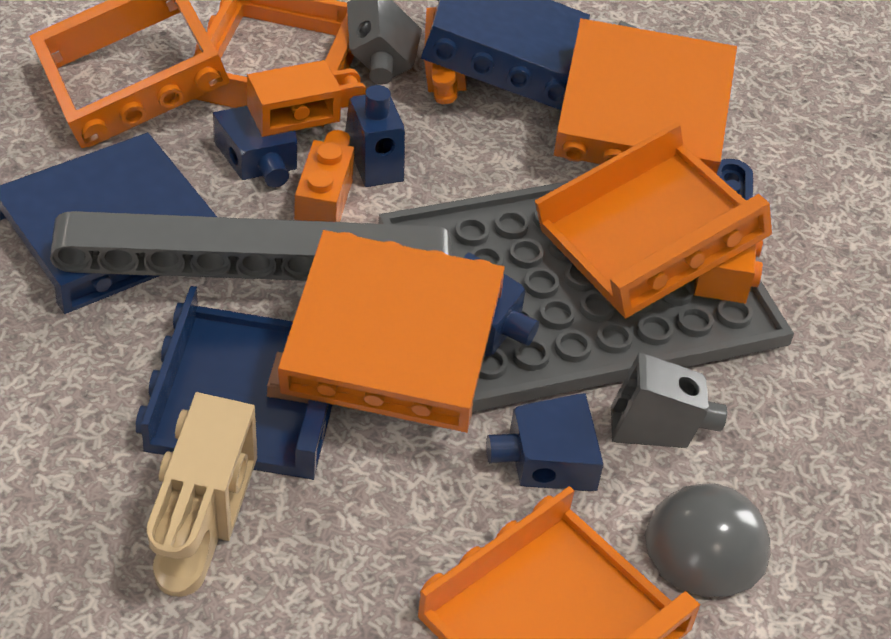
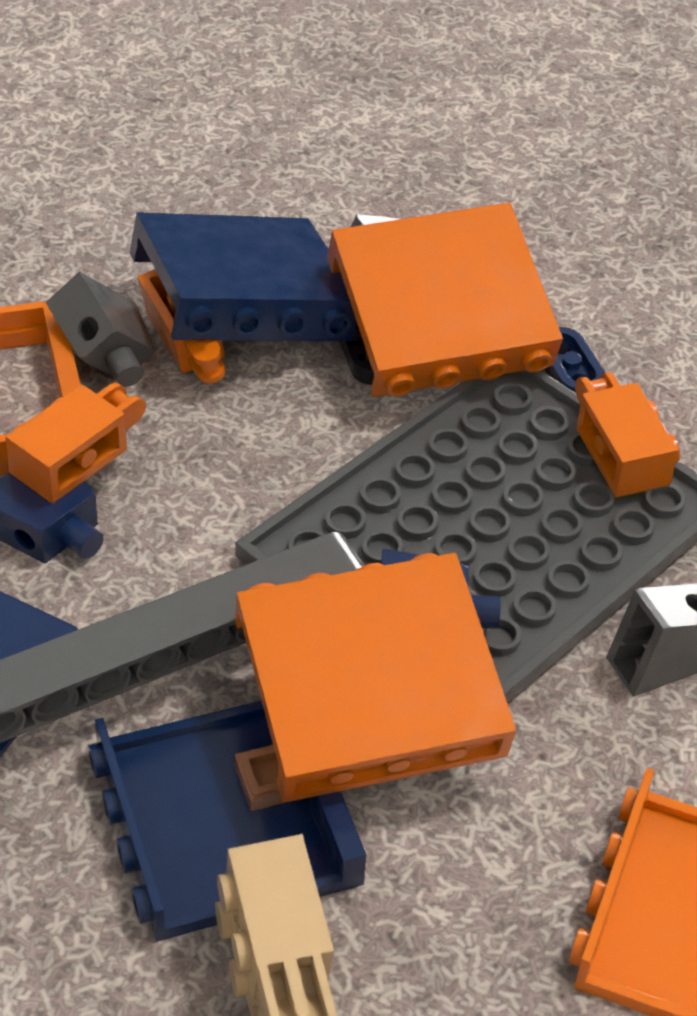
camera: 25 degrees left, 0 degrees up
(325, 179) = (154, 531): orange brick -> none
(372, 120) = (175, 452): dark blue torso -> none
(551, 445) = (588, 729): dark blue torso -> none
(650, 221) = (541, 437): orange panel -> none

